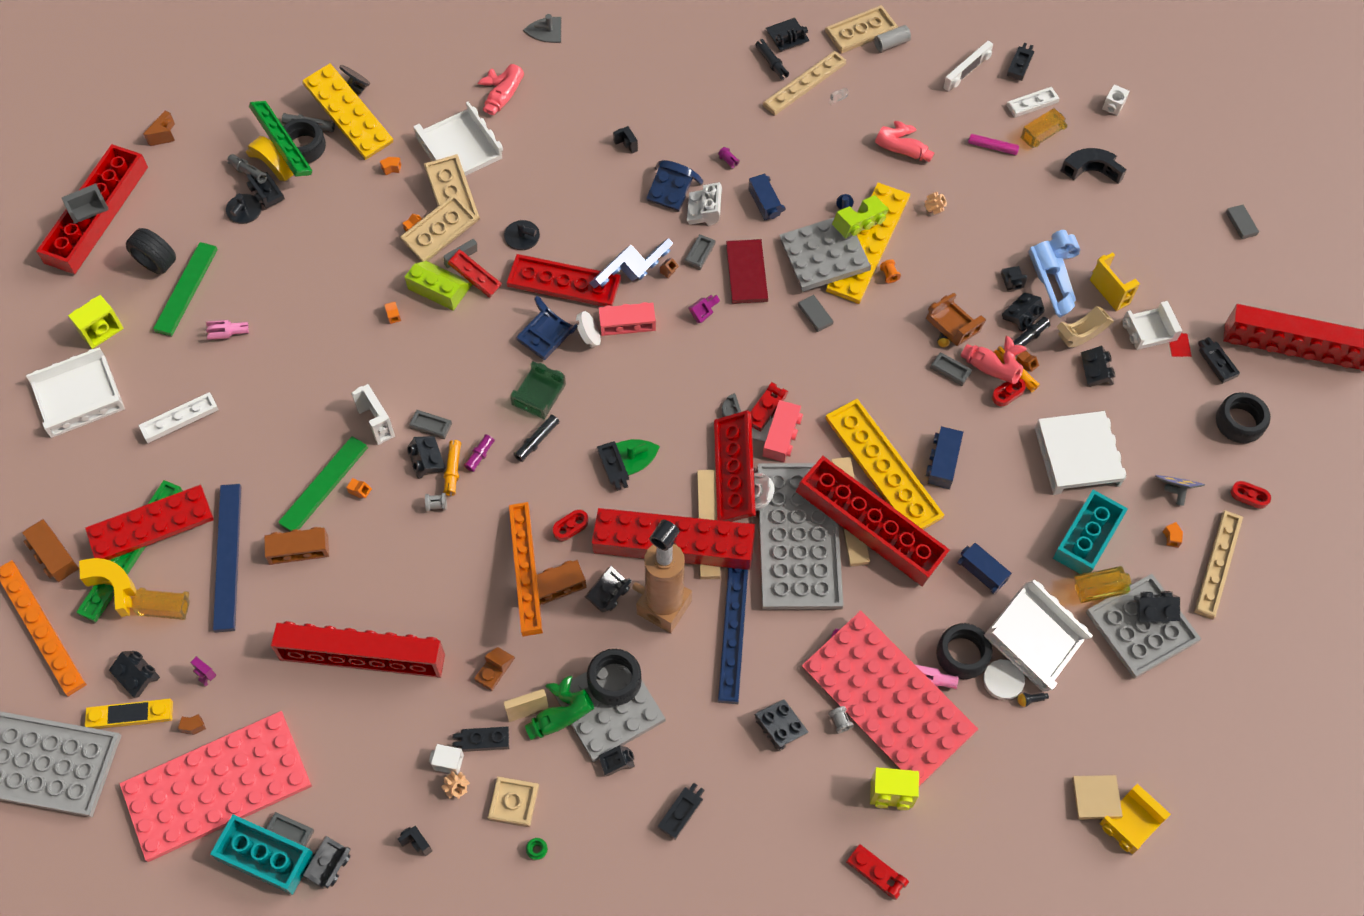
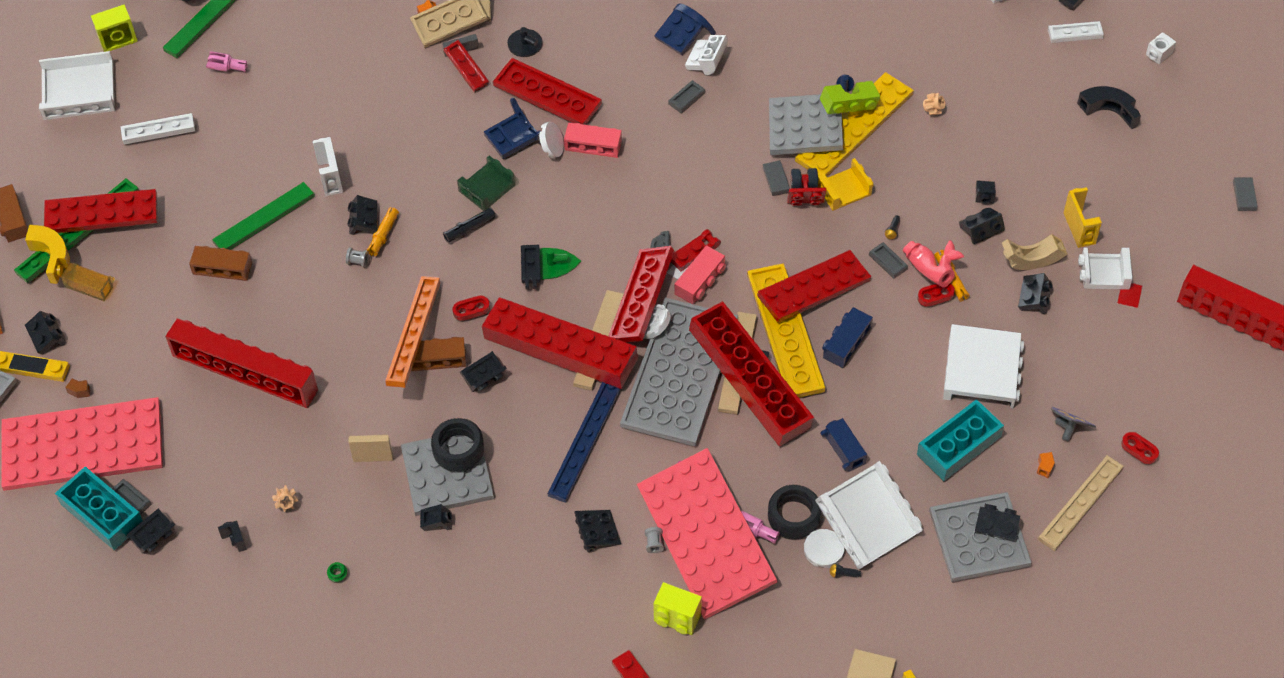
camera: 20 degrees right, 5 degrees down
(203, 671) = (102, 345): magenta plate -> none
(227, 558) = (158, 258): dark blue tile -> none
(358, 488) = (292, 228): orange piece -> none
(392, 312) = (379, 83): orange piece -> none
(430, 424) = (378, 189): dark grey tile -> none
(437, 284) = (429, 67): lime slope -> none
(446, 759) = (285, 474): white brick -> none
(479, 453) = (412, 224): magenta pin -> none
(482, 739) = (324, 469): black hinge -> none
(494, 668) = (357, 412): dark orange slope -> none
(513, 801) = (331, 528): tan tile -> none
(558, 718) = (396, 467): green piece -> none
(632, 263) = (615, 91): bracket -> none
(664, 594) = (528, 390): medium nougat piece -> none
(668, 267) = (650, 103): dark orange piece -> none
(681, 811) = (477, 577): black hinge -> none
(702, 308) = (667, 147): magenta plate -> none
(725, 154) = (746, 13): magenta pin -> none
(747, 271) = (724, 124): dark red tile -> none
(765, 197) = (768, 60): dark blue brick -> none
(849, 311) = (809, 193): none -> red plate
(883, 304) = (846, 186): none -> yellow panel
(890, 271) = (863, 153): orange bush -> none
(891, 140) = (917, 37): coral piece -> none
(894, 414) = (814, 286): none -> red plate
(953, 320) = (907, 216): dark orange panel -> none
(993, 144) = (1017, 62): dark pink axle -> none
(1028, 361) = (965, 270): dark orange piece -> none
(1032, 332) = (983, 245): black pin -> none
(1043, 128) = (1074, 58): clear yellow brick -> none
(1048, 258) = (1028, 181): light blue panel -> none
(1102, 584) = (952, 487): clear yellow brick -> none
(1218, 360) = (1161, 317): black hinge -> none
(1252, 405) = (1168, 360): black tyre -> none

